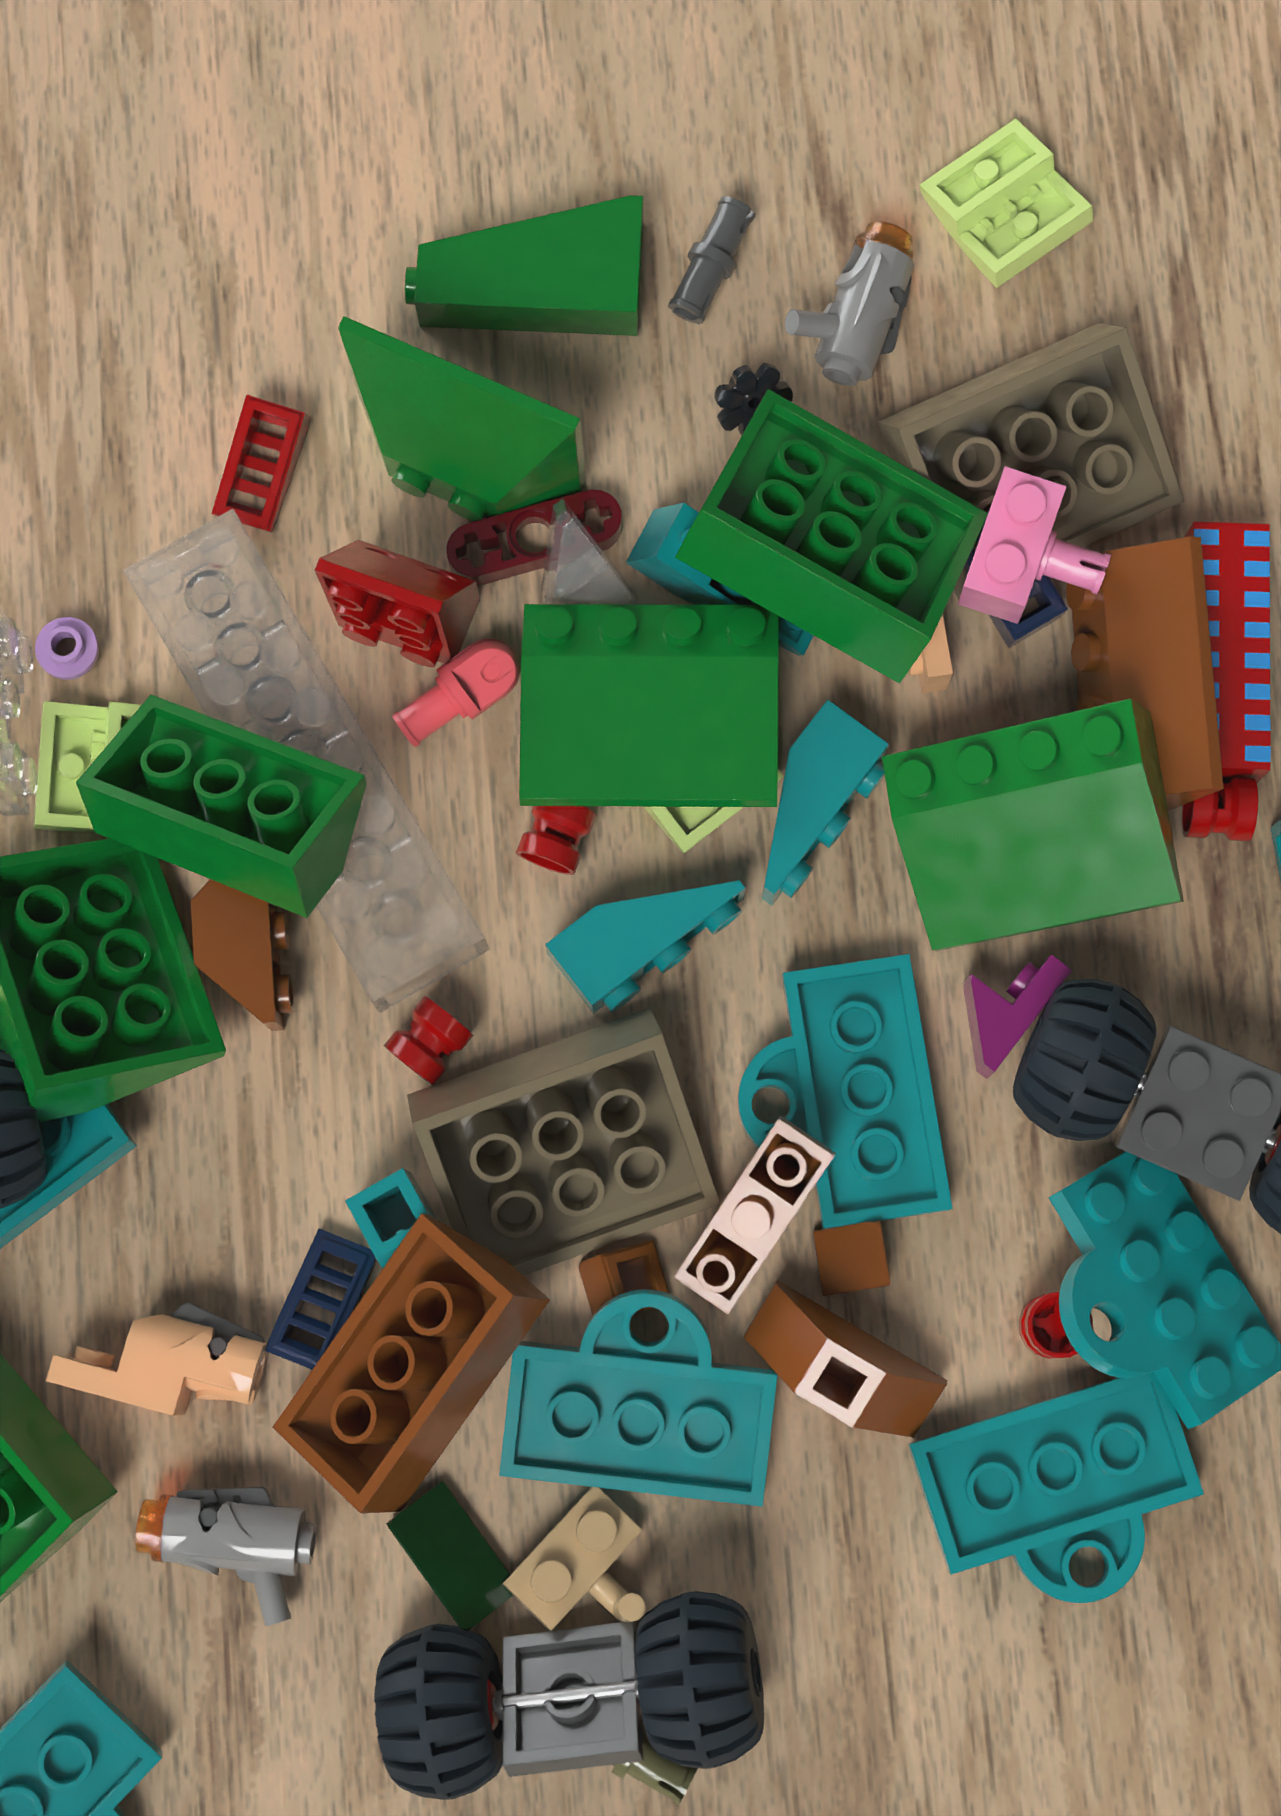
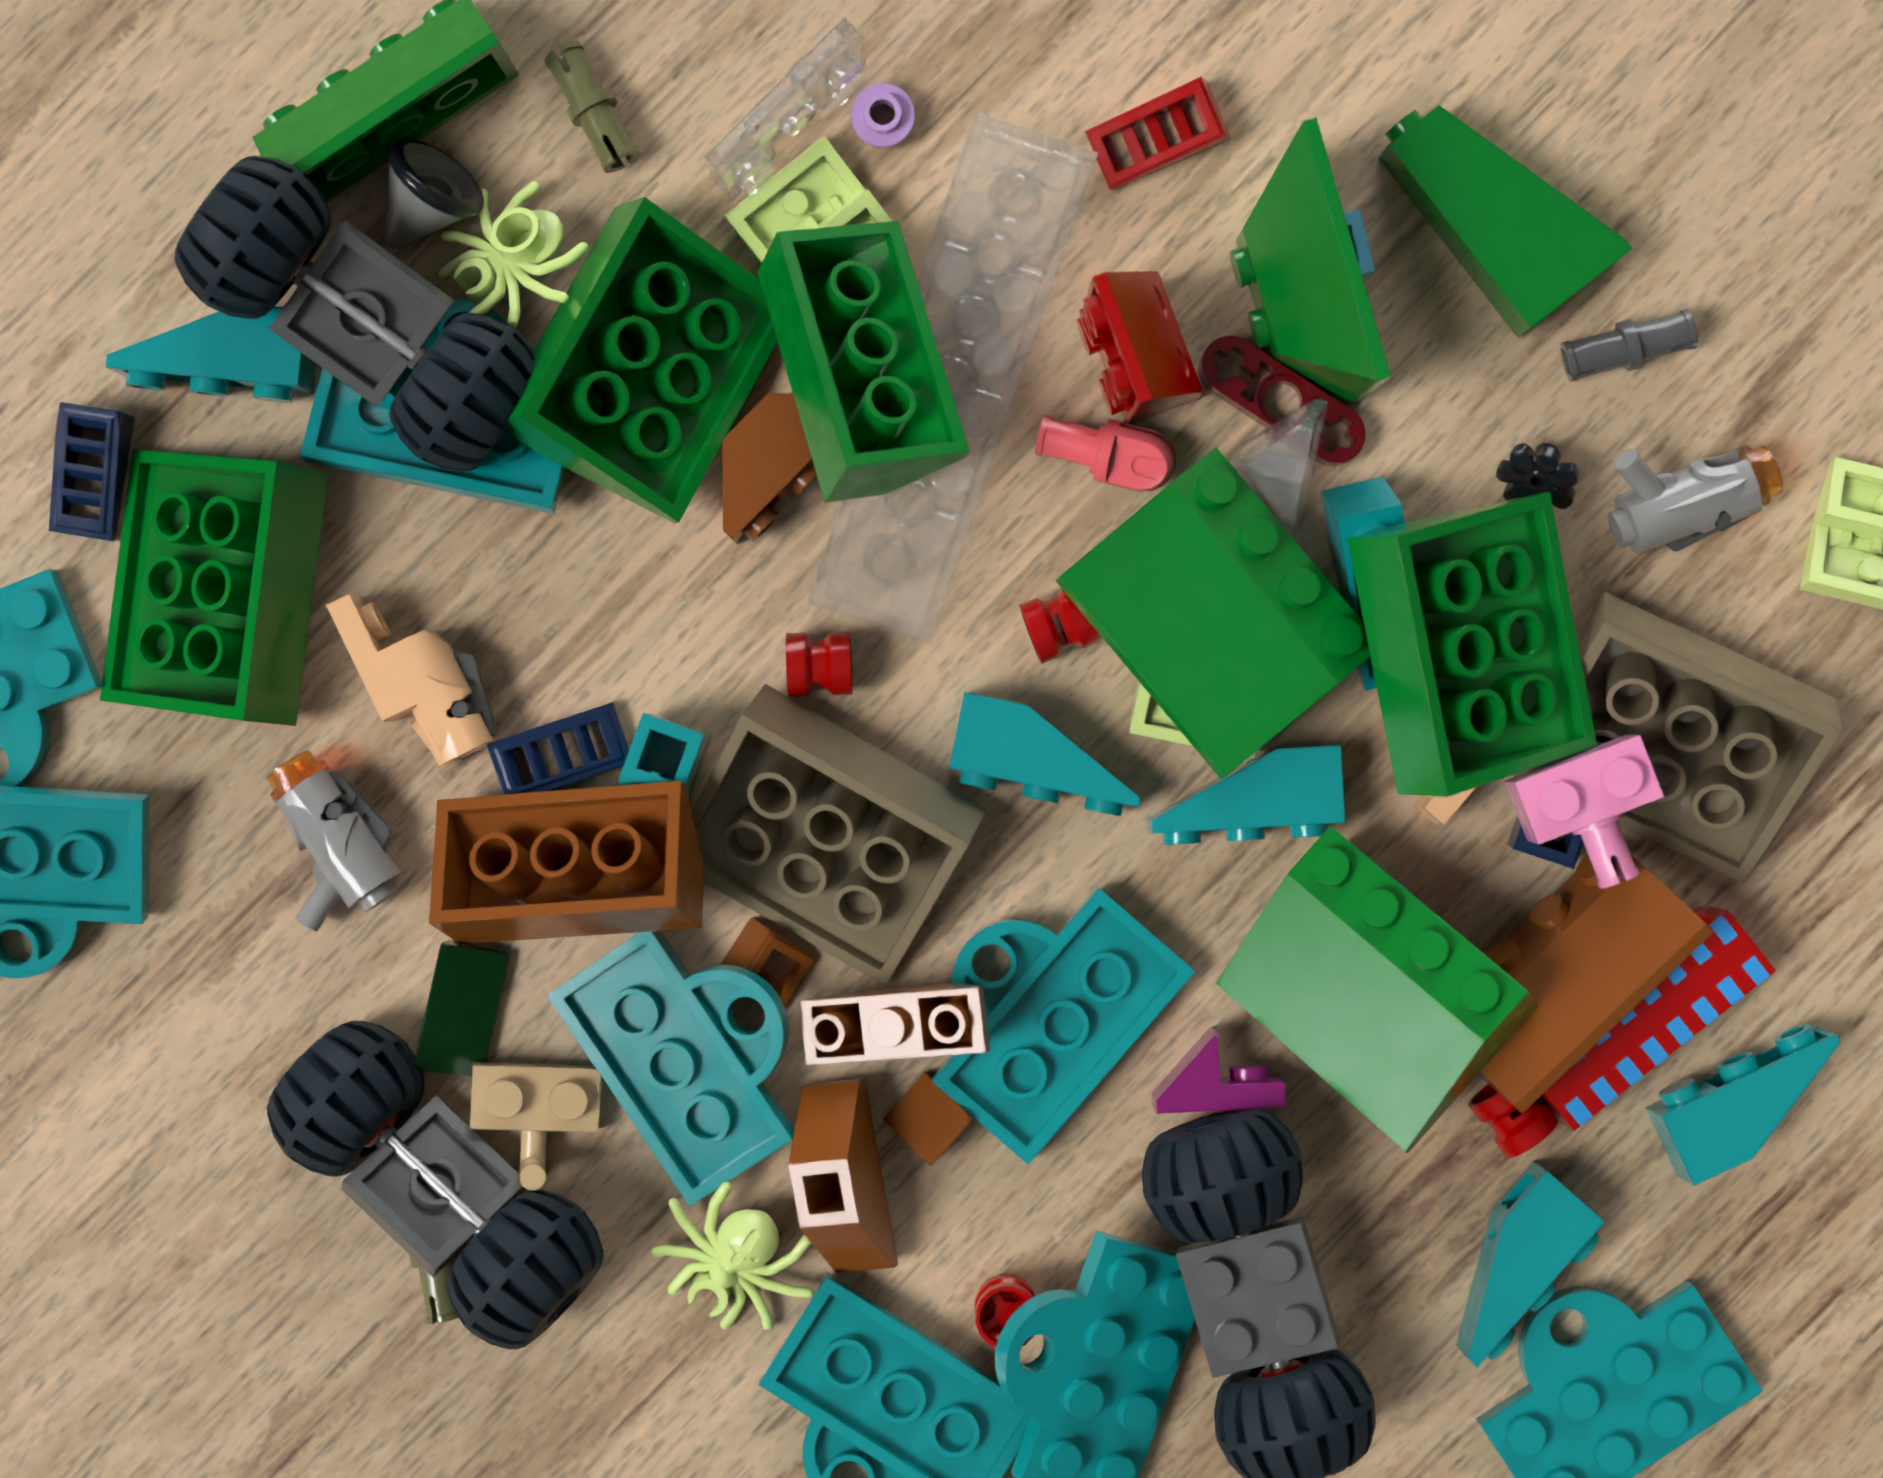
camera: 45 degrees right, 10 degrees up
(834, 1508) = (733, 1259): none -> yellowish green animal

